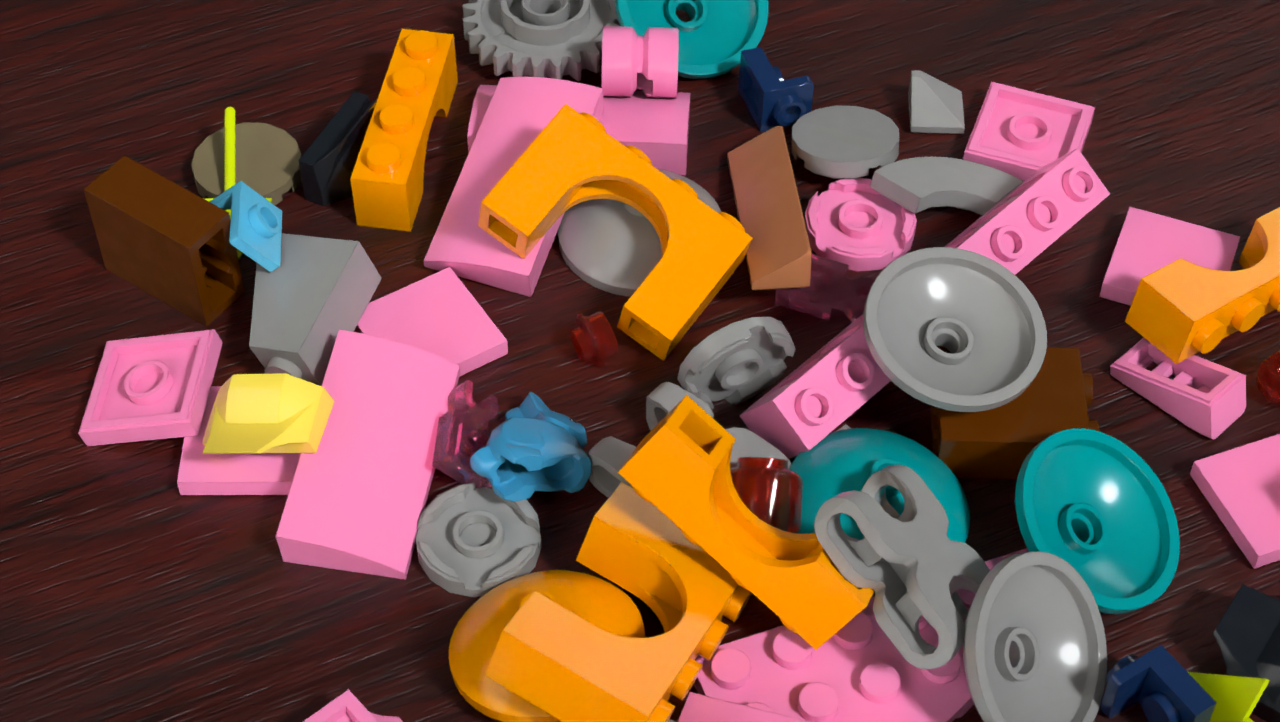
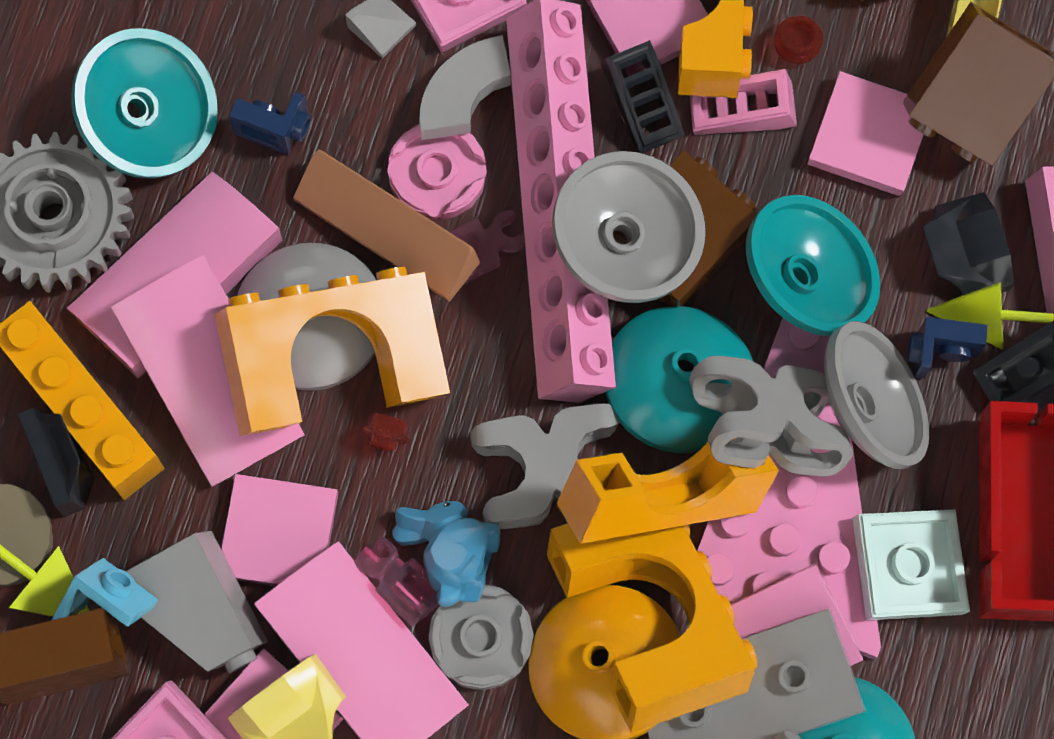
camera: 50 degrees left, 25 degrees up
(640, 61) = (177, 190): bright pink wheel -> none
(737, 361) = (507, 369): light grey tile -> none
(770, 491) = (639, 442): clear red head -> none
(844, 141) = (362, 115): light grey tile -> none
(1103, 265) = (653, 72): none -> black slope

